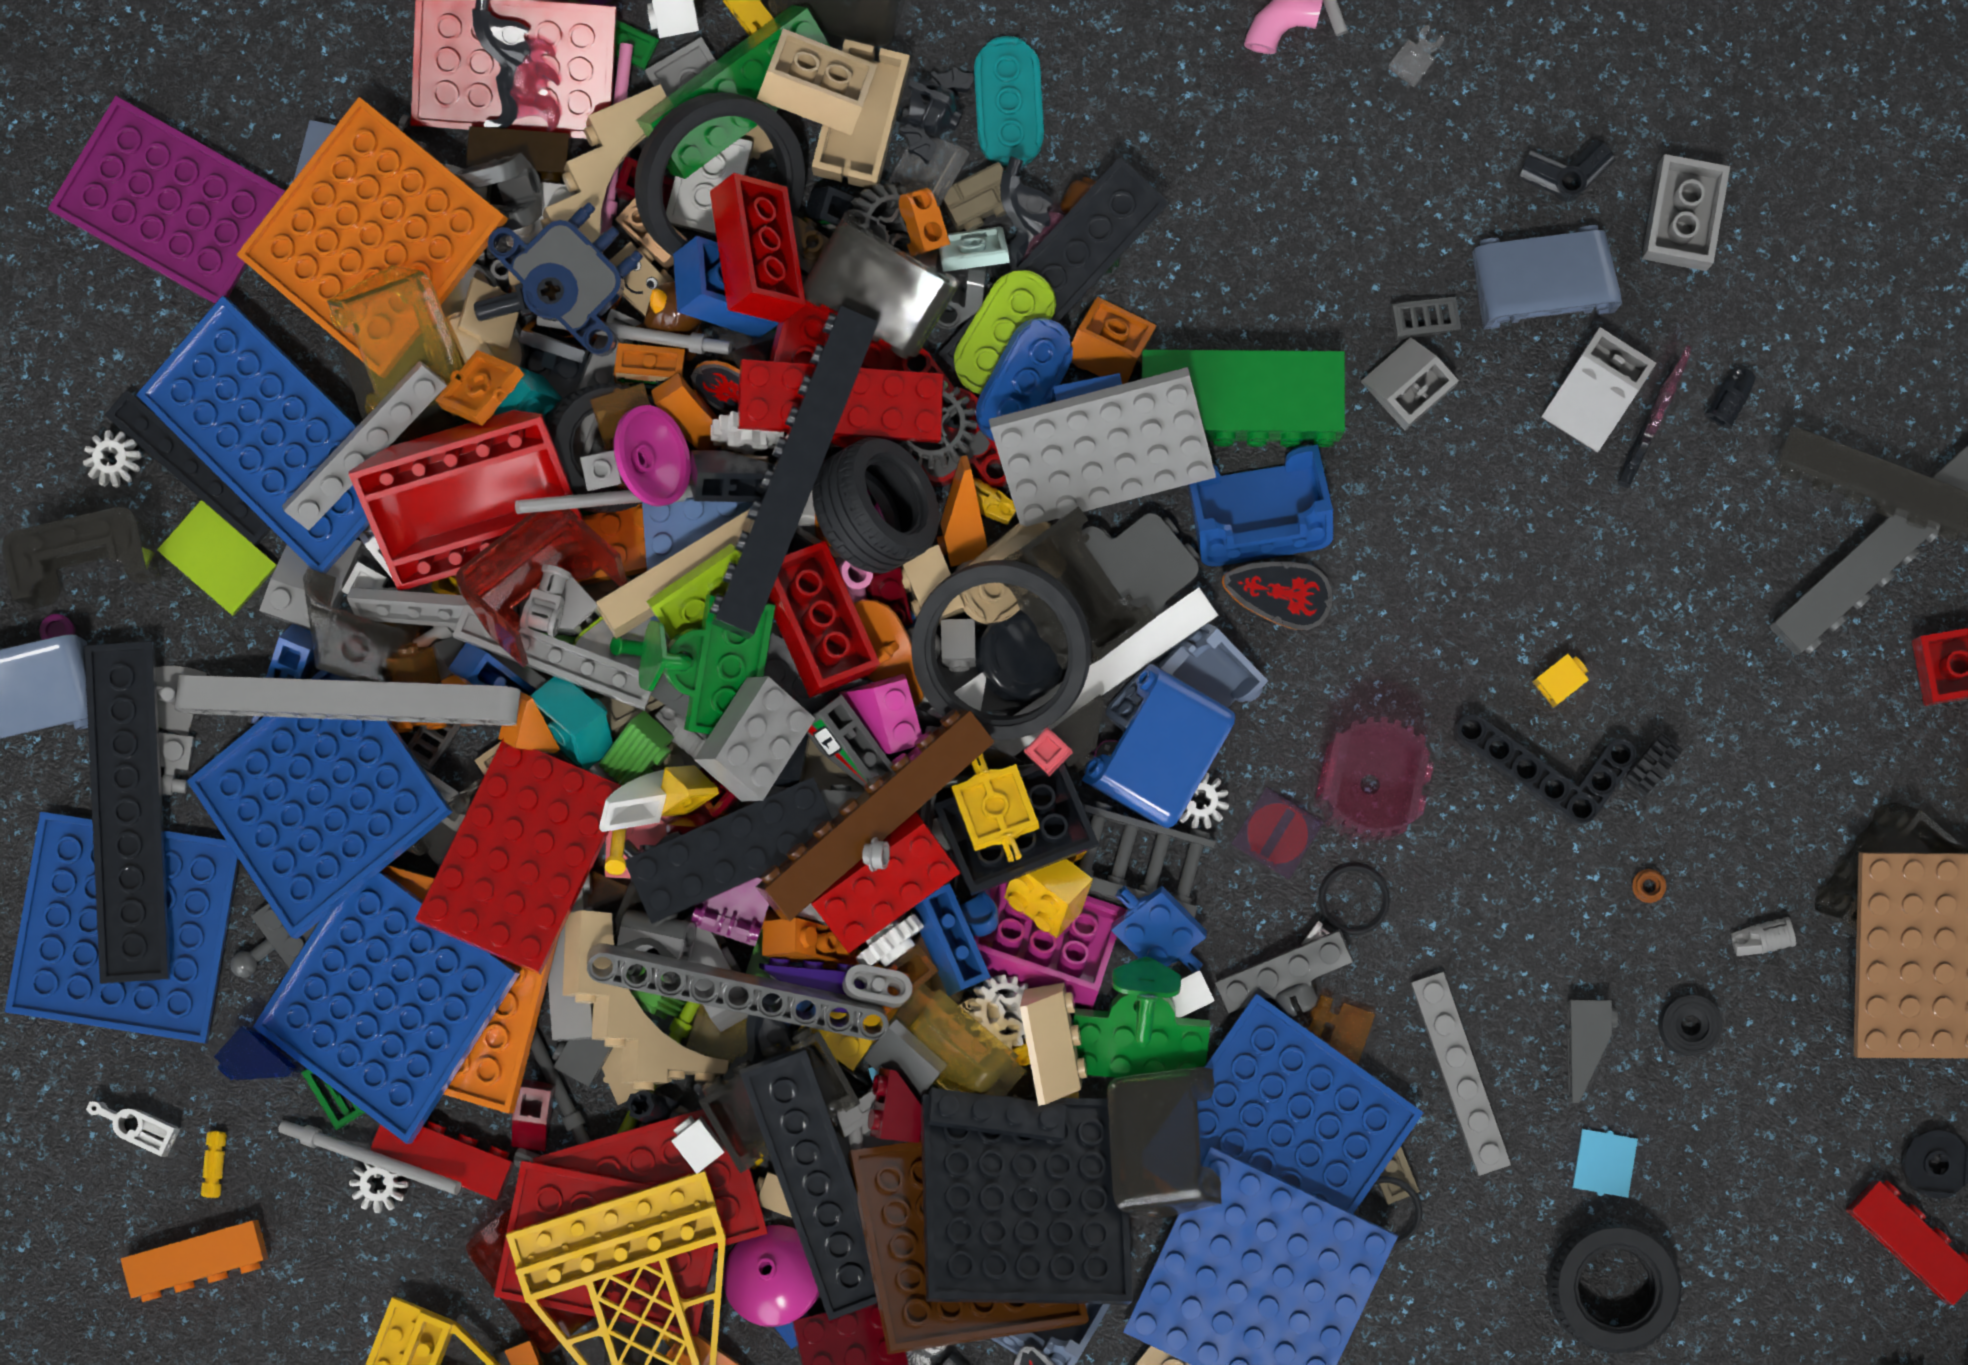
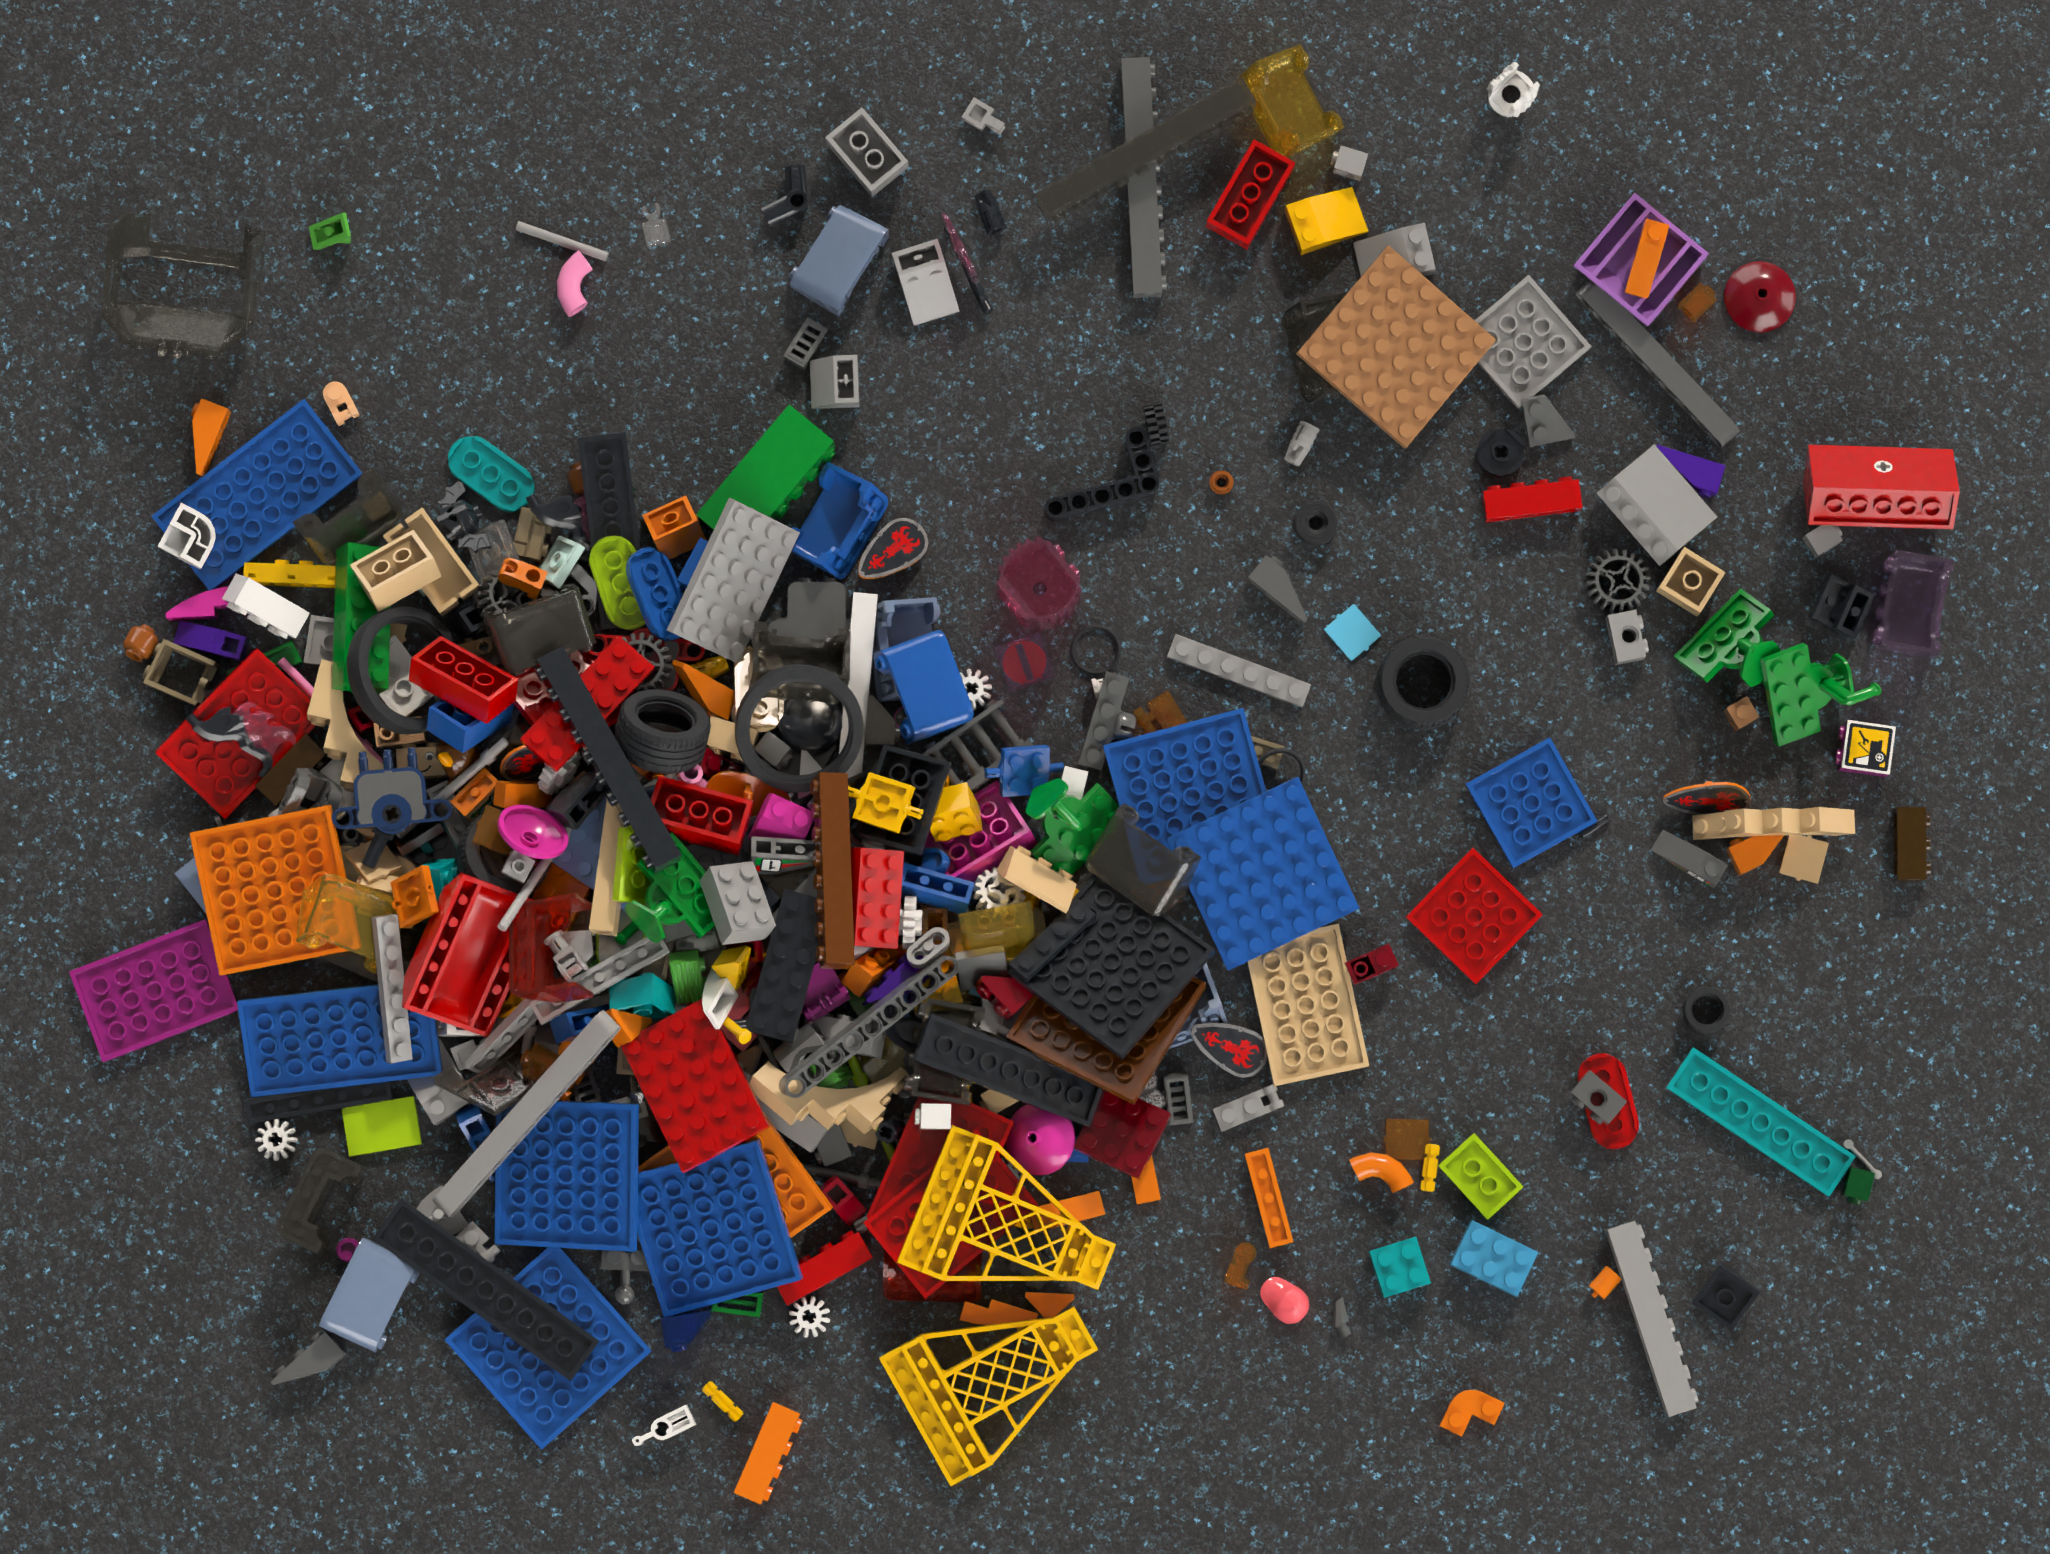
camera: 50 degrees left, 0 degrees up
(314, 1137) = (753, 1332): light grey bar -> none
(876, 854) = (857, 887): light grey plate -> none
(1048, 751) = (876, 749): coral tile -> none
(1561, 679) = (1068, 435): yellow brick -> none
(1828, 301) = (980, 115): none -> light grey plate

